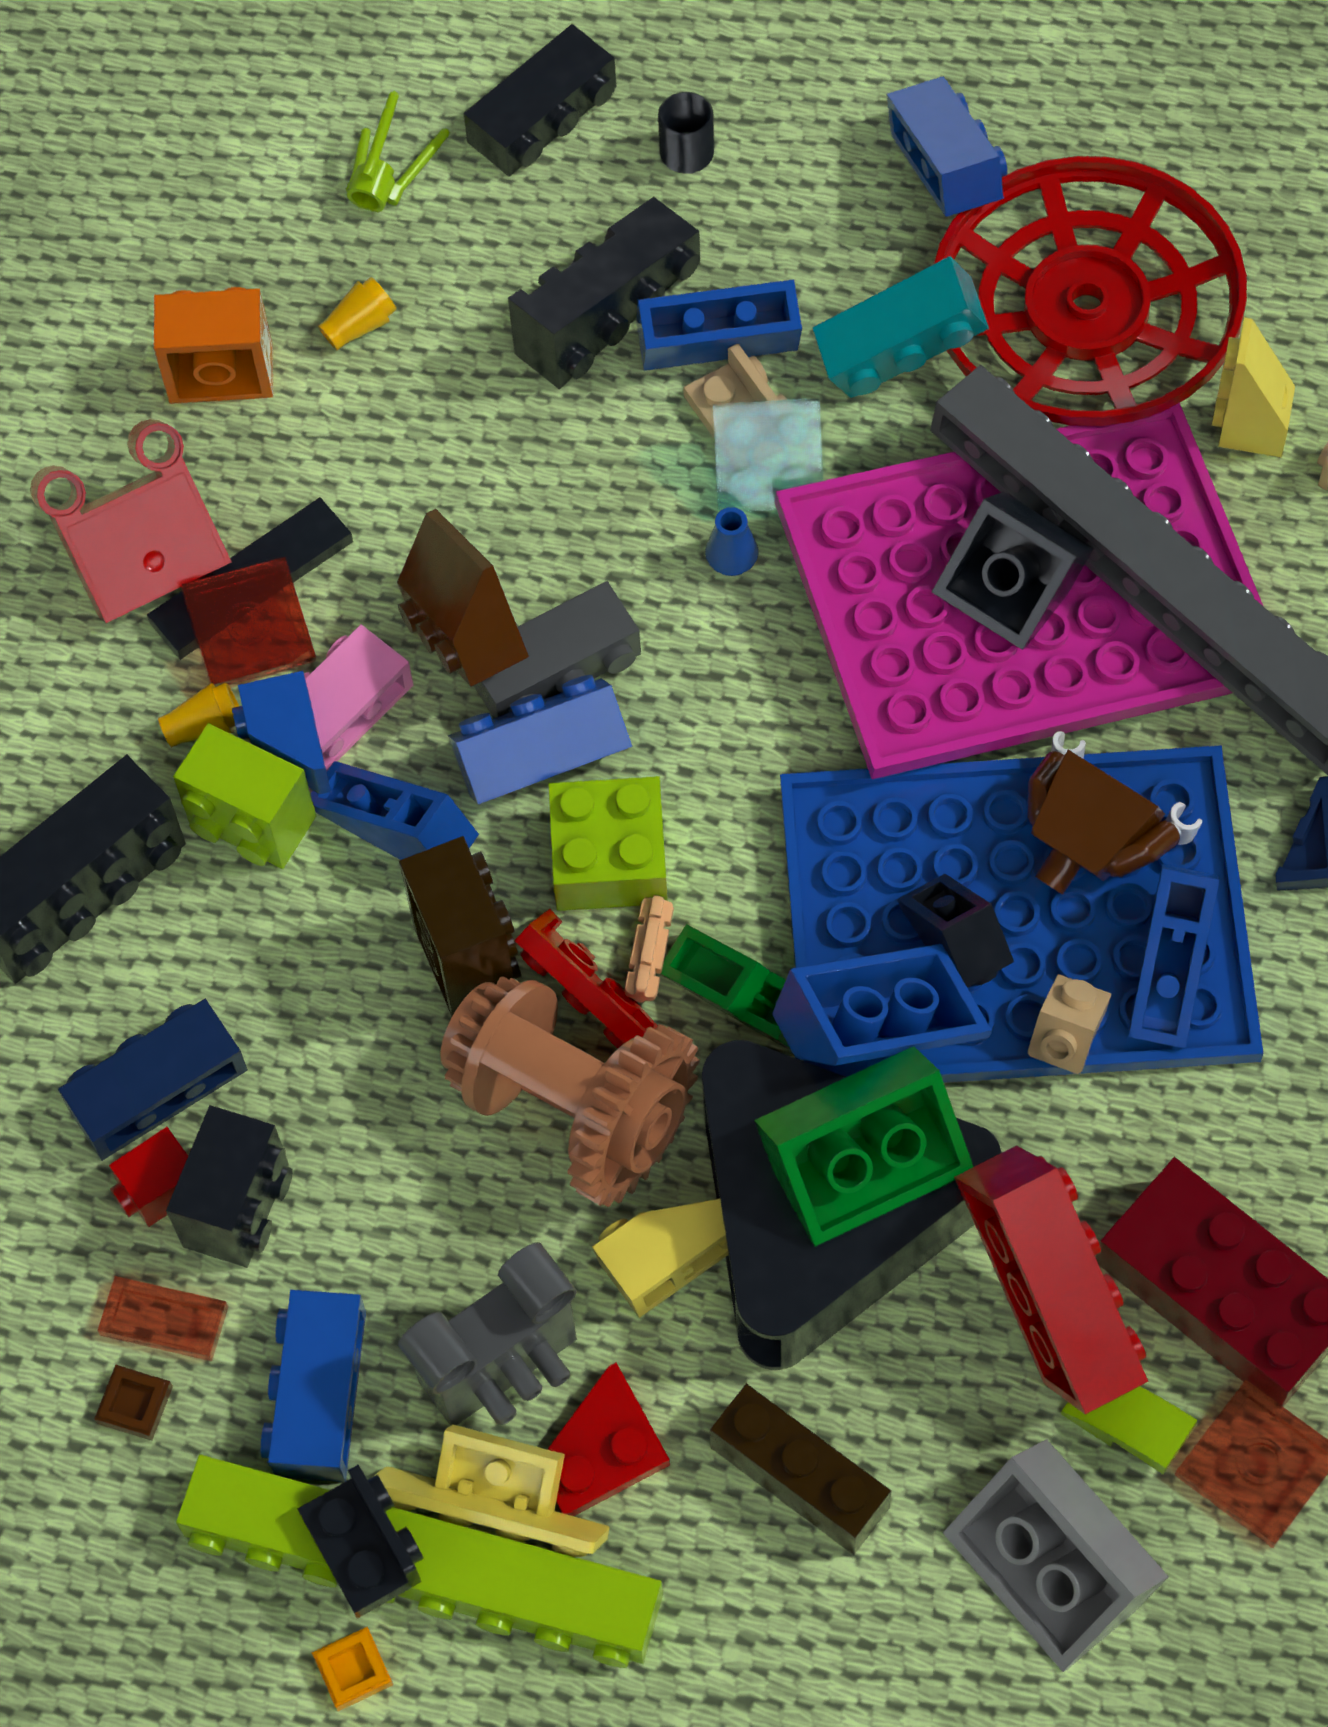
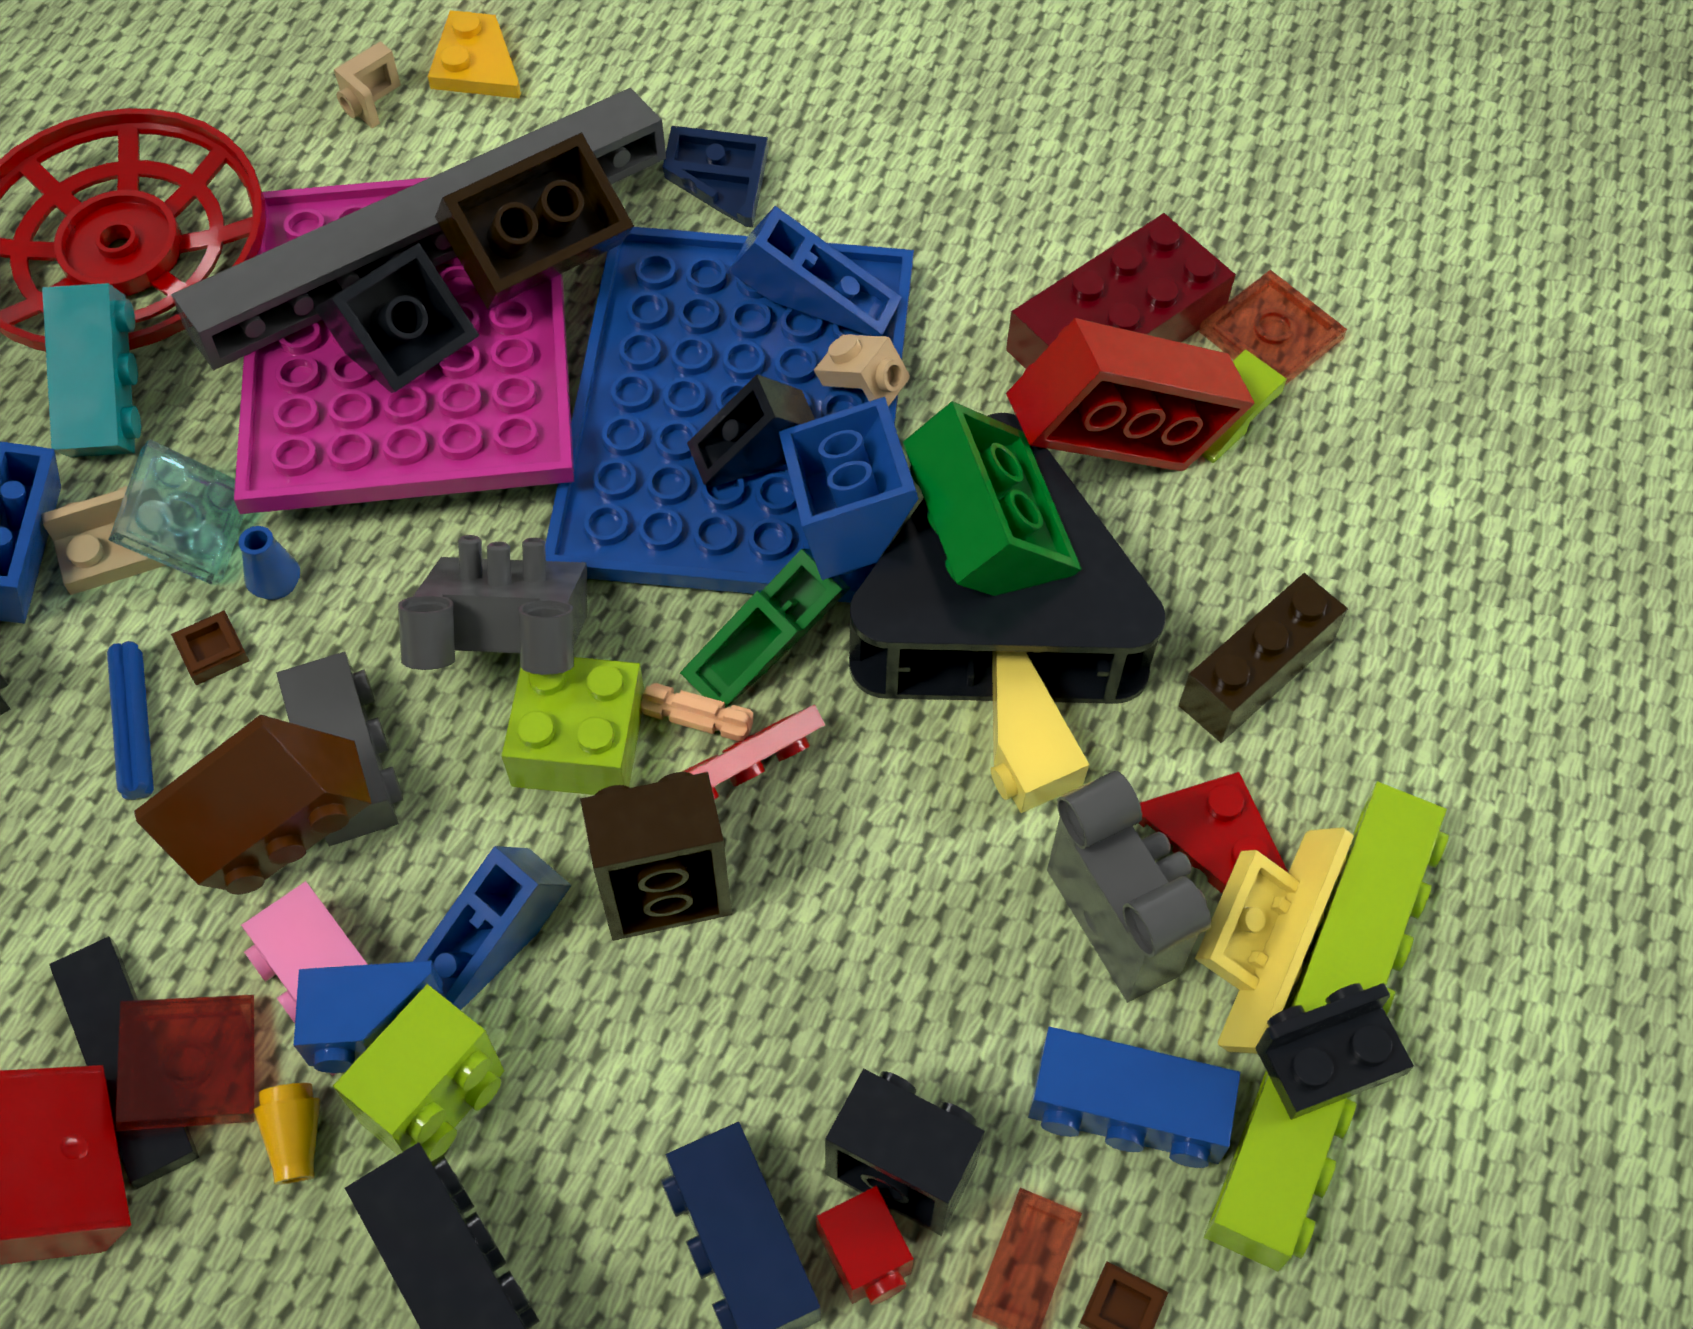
camera: 85 degrees left, 5 degrees down
(352, 1669) = (1435, 1105): light orange tile -> none
(539, 738) = (439, 770): brick -> none
(559, 483) = (130, 721): none -> blue axle
(620, 1107) = (894, 729): nougat piece -> none
(646, 524) = (210, 647): none -> reddish brown tile
(707, 742) = (496, 607): none -> dark grey piece
(1054, 1554) = (1353, 477): light grey slope -> none
(1095, 820) = (669, 310): reddish brown torso -> none
(1151, 658) = (533, 220): none -> dark brown brick
(1253, 396) = (282, 125): light yellow slope -> none

